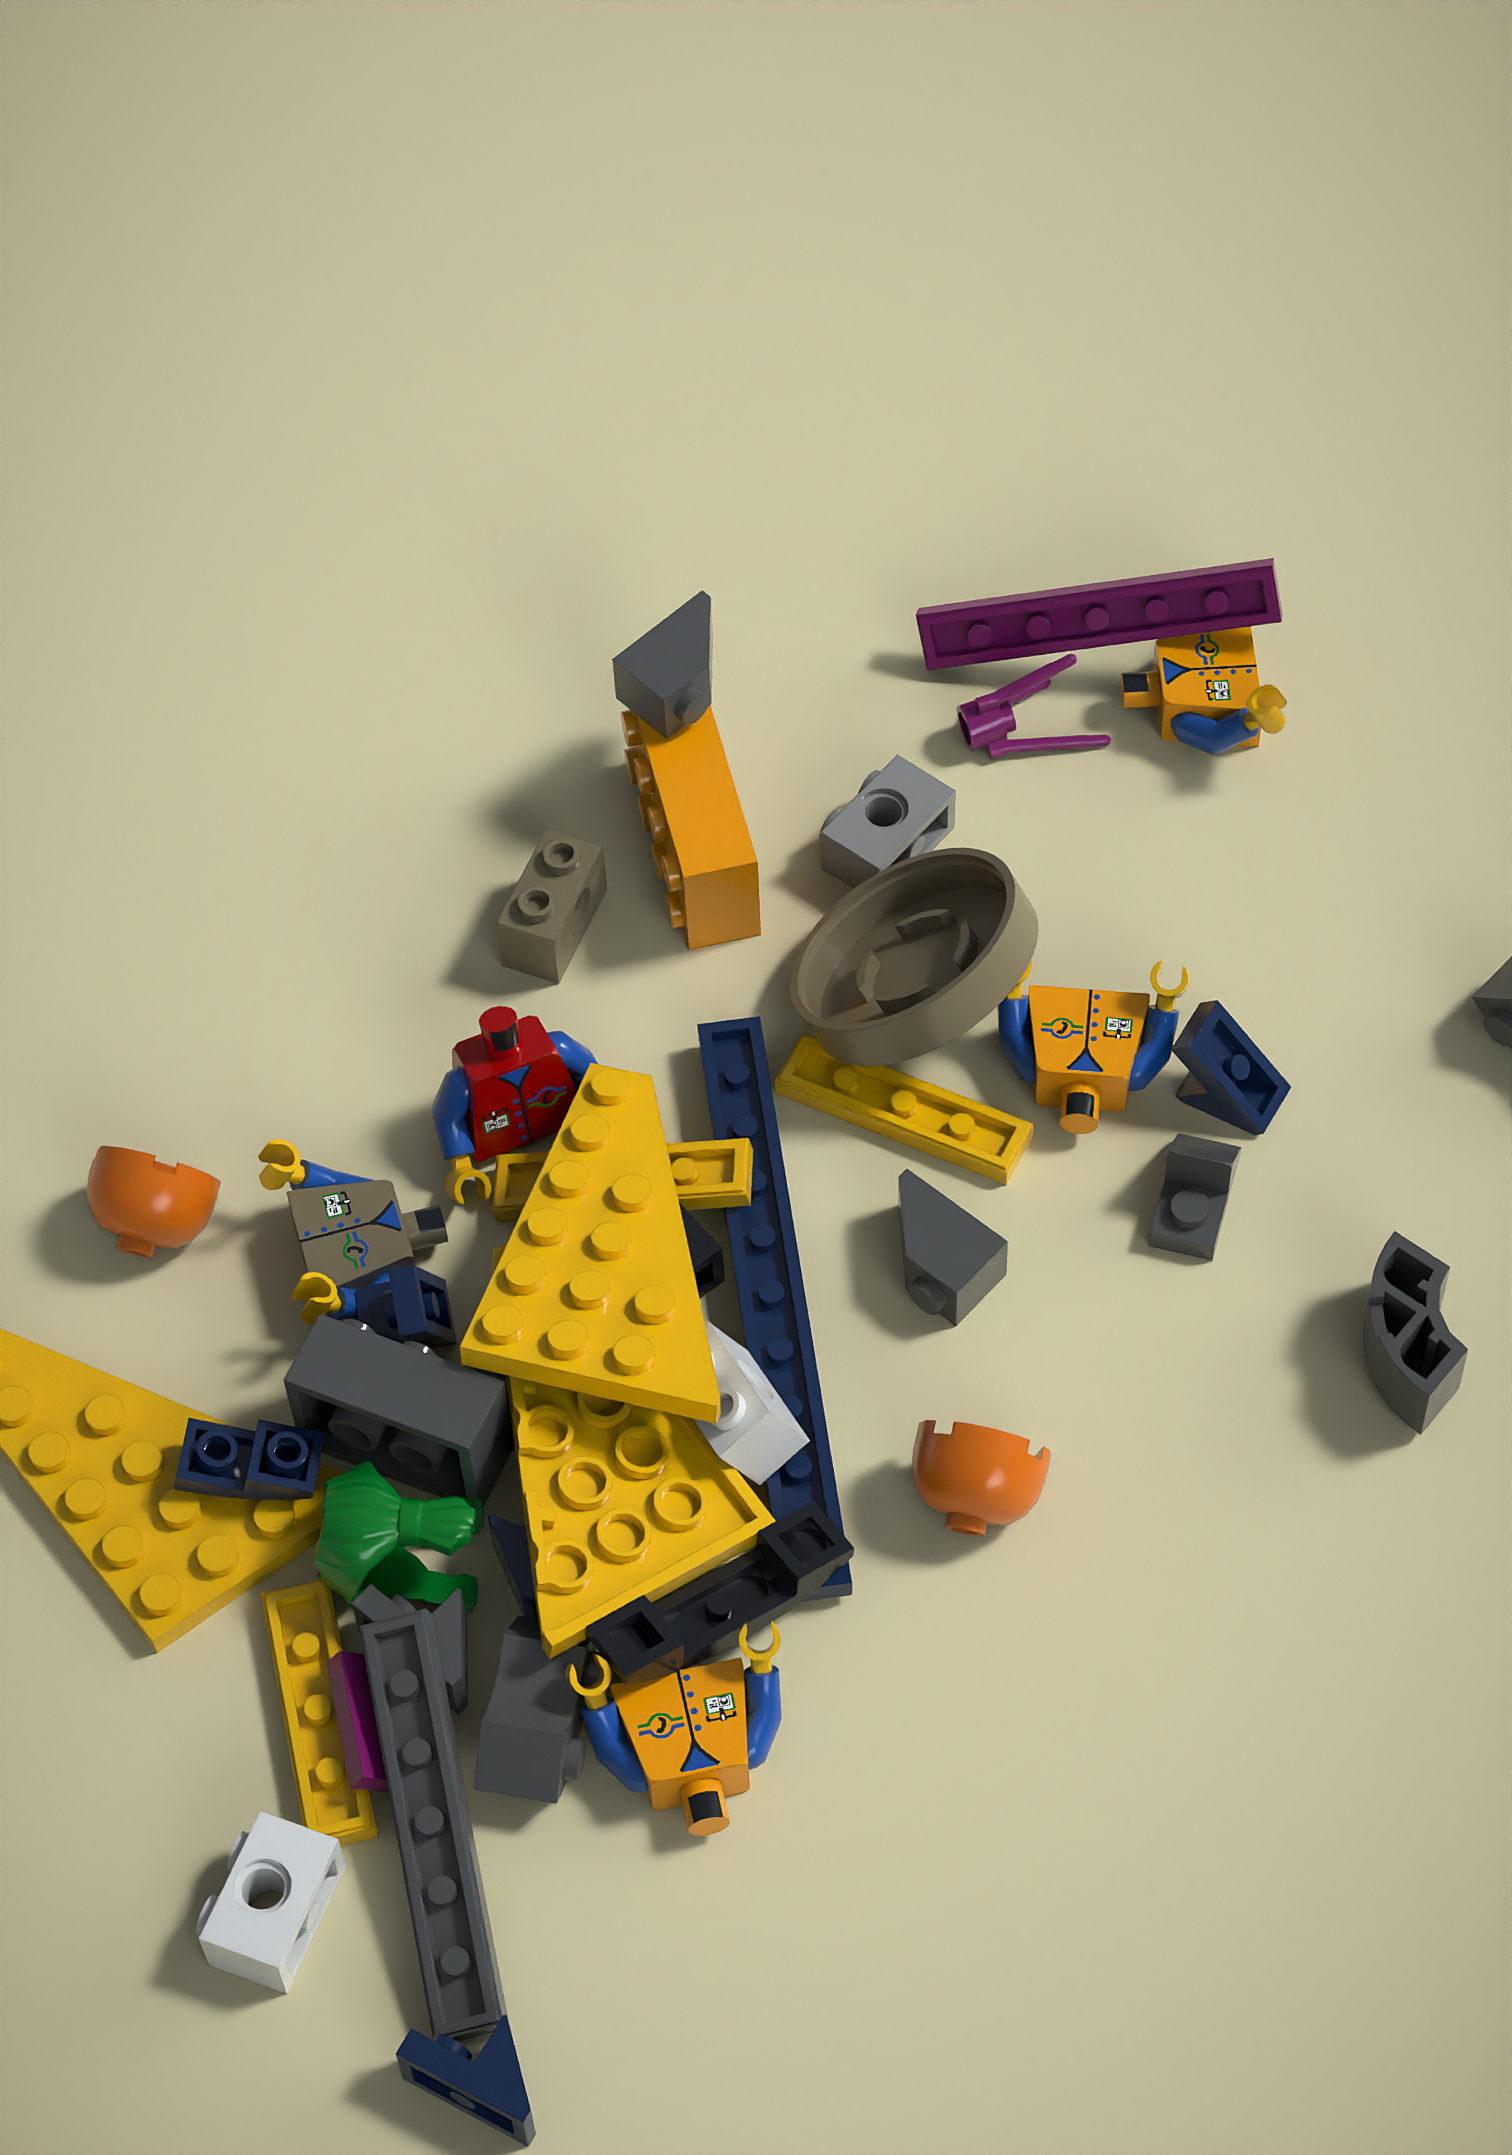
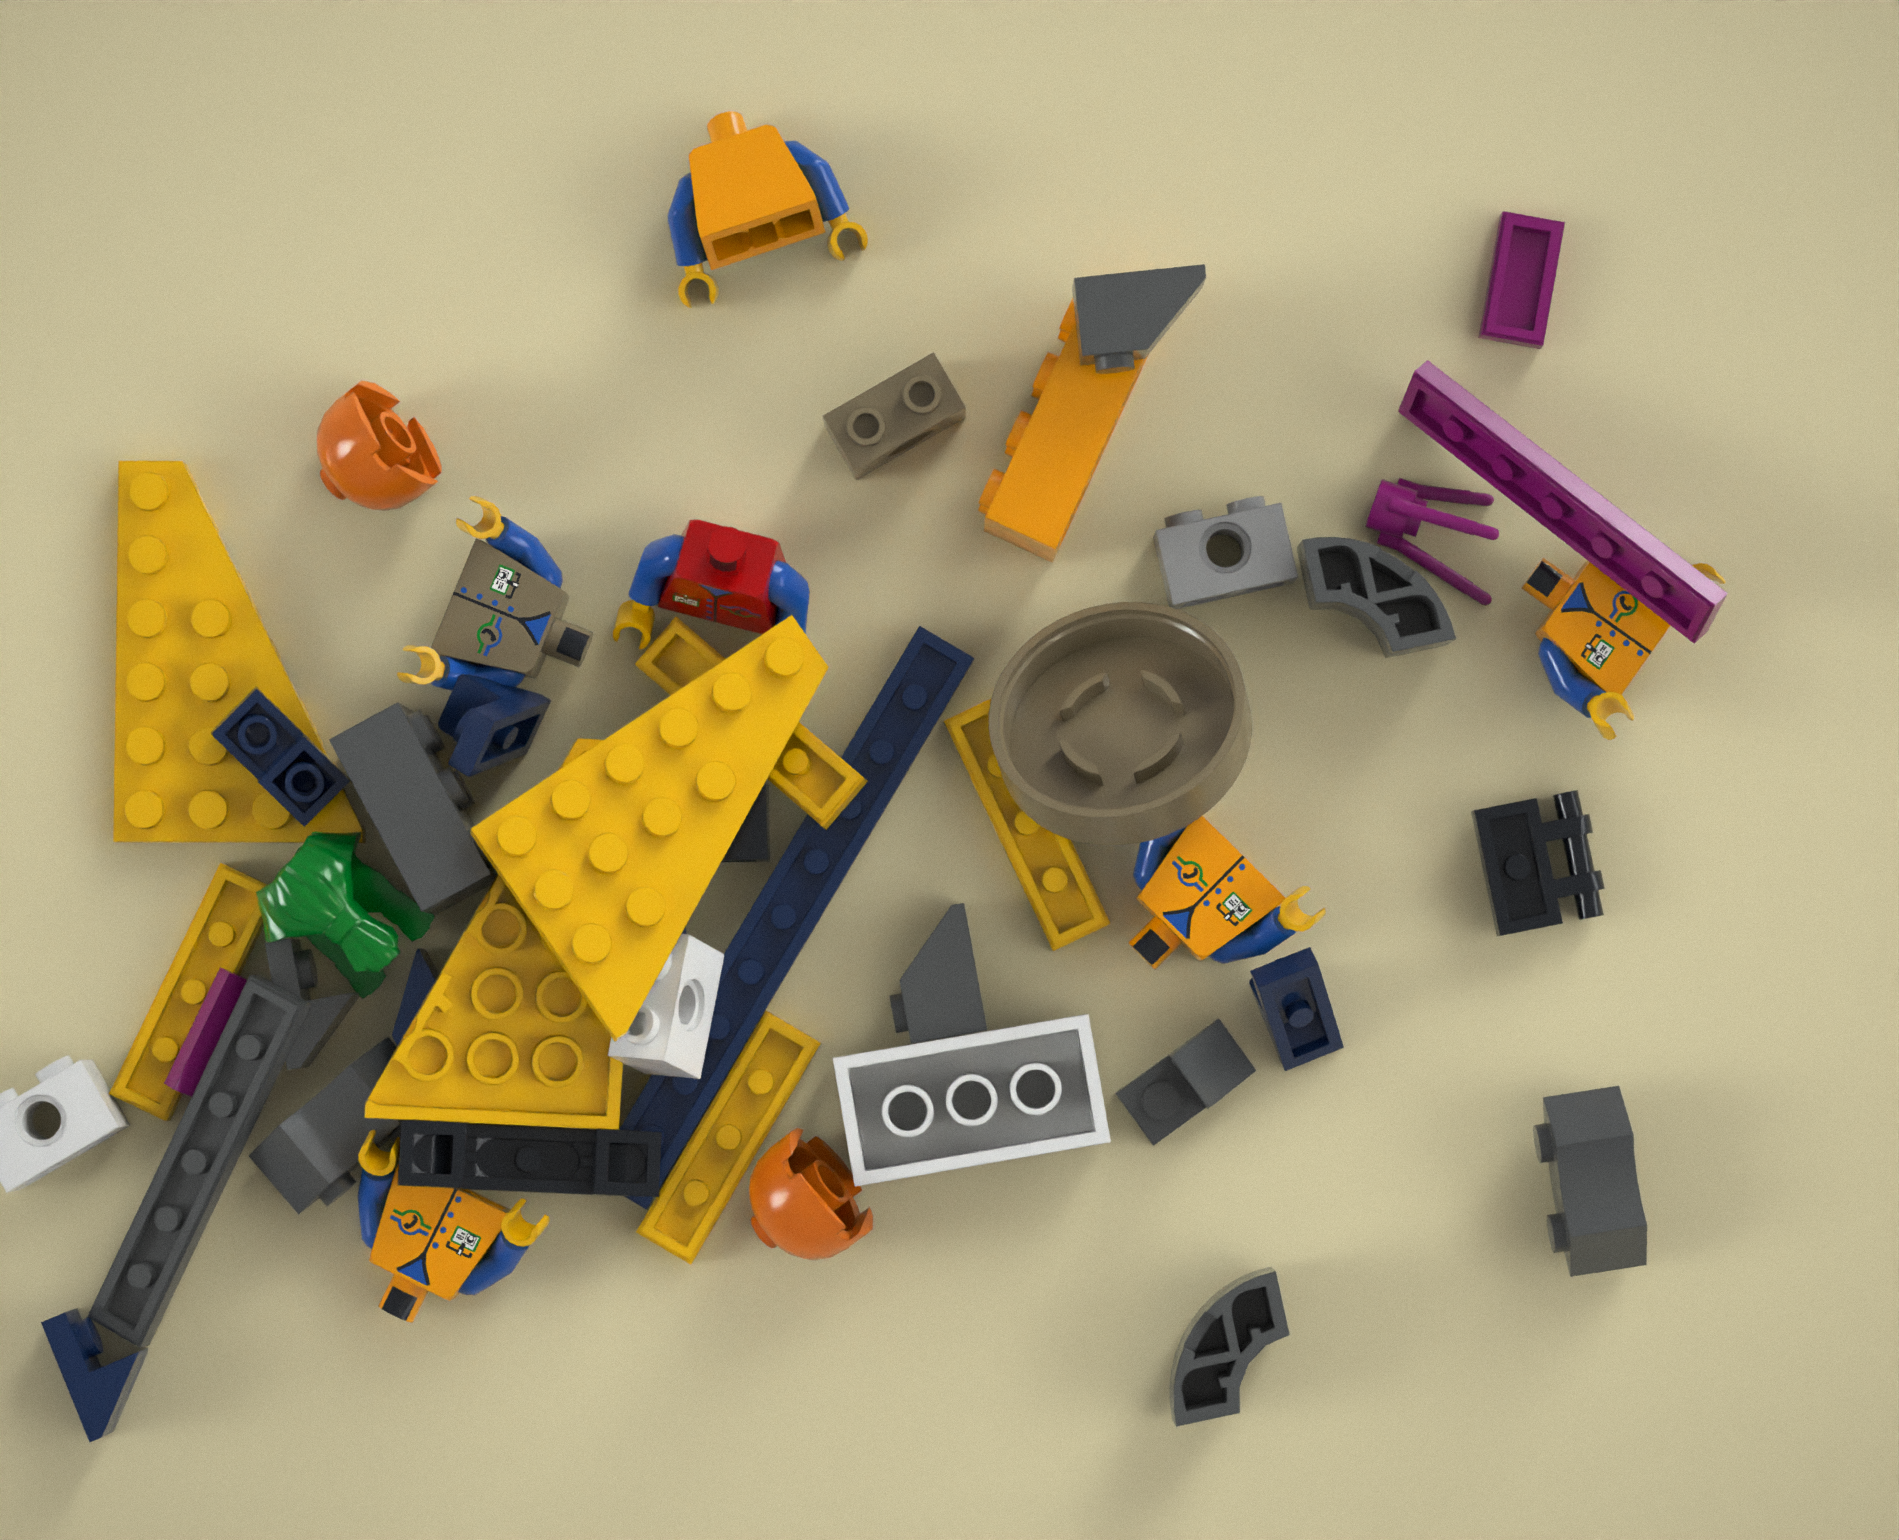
camera: 35 degrees right, 30 degrees up
(315, 839) = (749, 198): none -> light orange torso
(872, 1496) = (728, 1137): none -> yellow tile
(937, 540) = (1521, 280): none -> magenta tile
(1024, 769) = (1376, 590): none -> dark grey brick
(1041, 1303) = (971, 1100): none -> white brick
(1303, 877) = (1519, 866): none -> black plate

